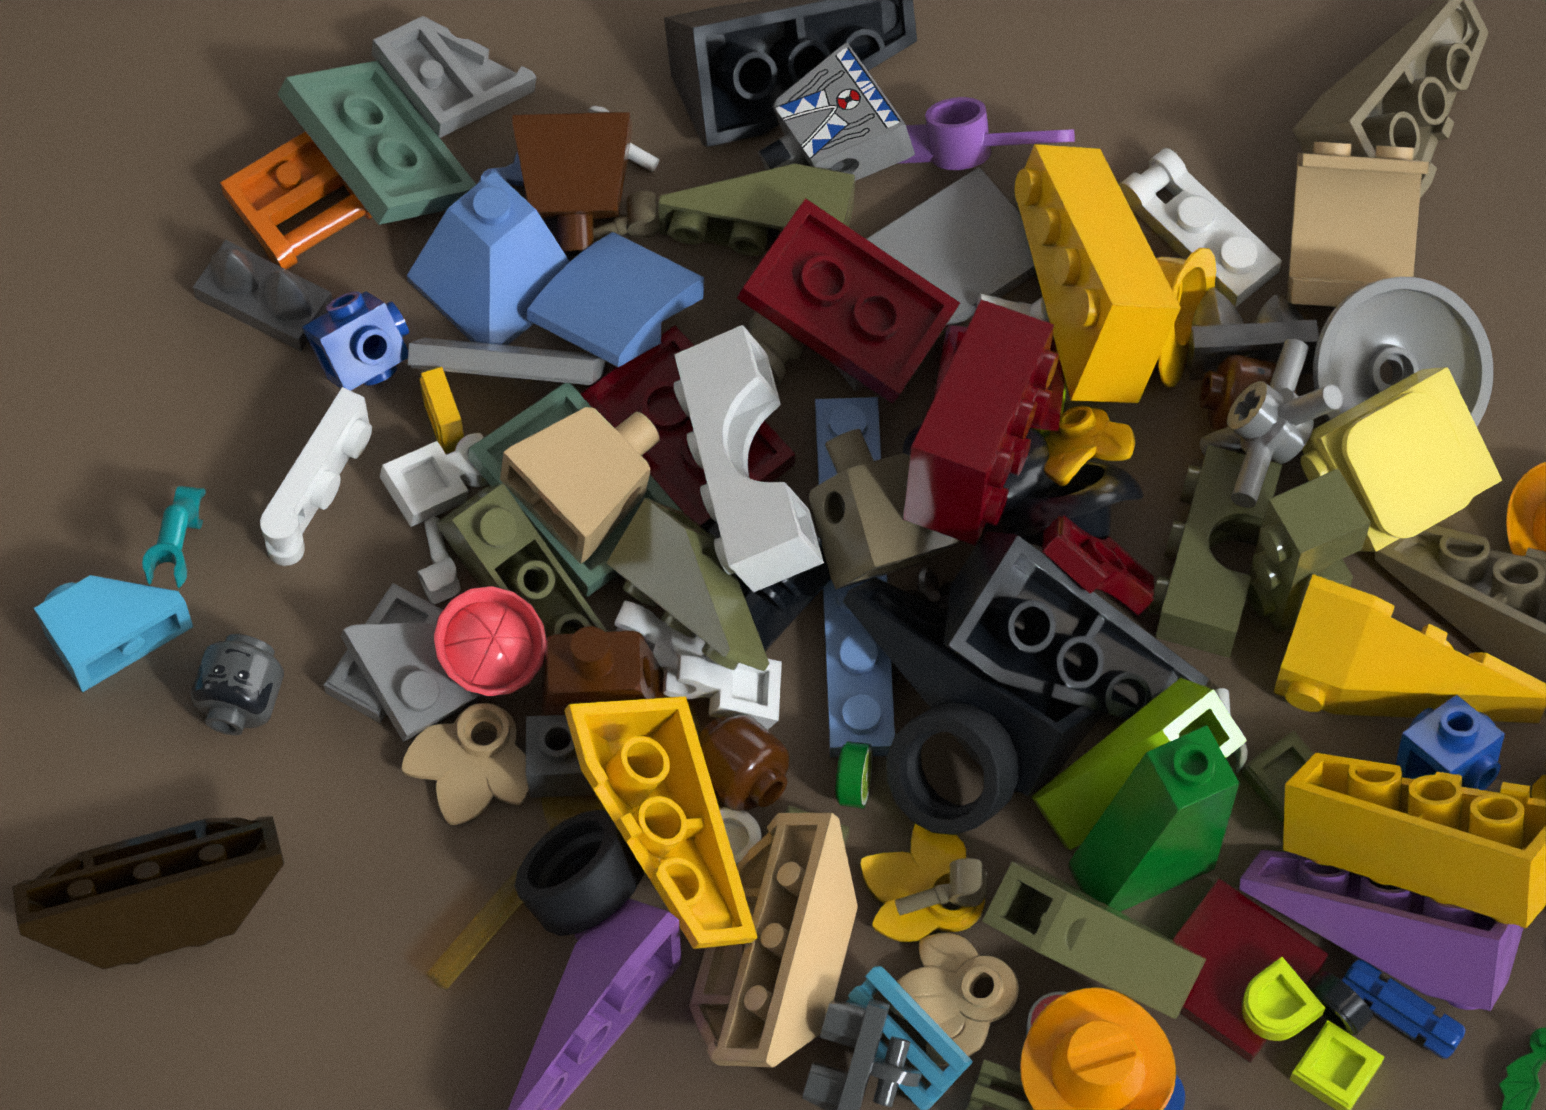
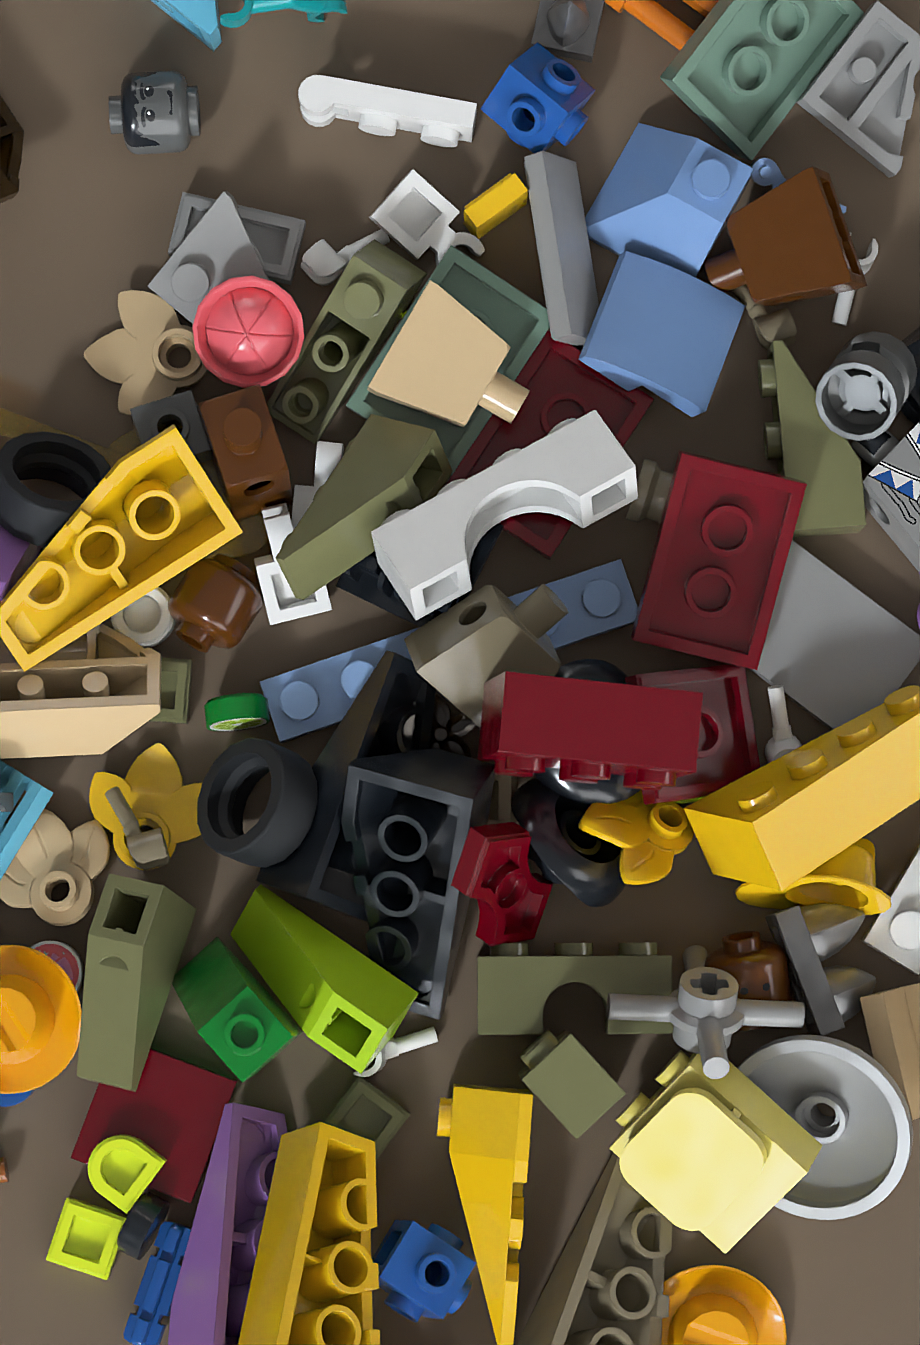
camera: 70 degrees right, 20 degrees up
(728, 136) = (866, 386): none -> dark grey wheel

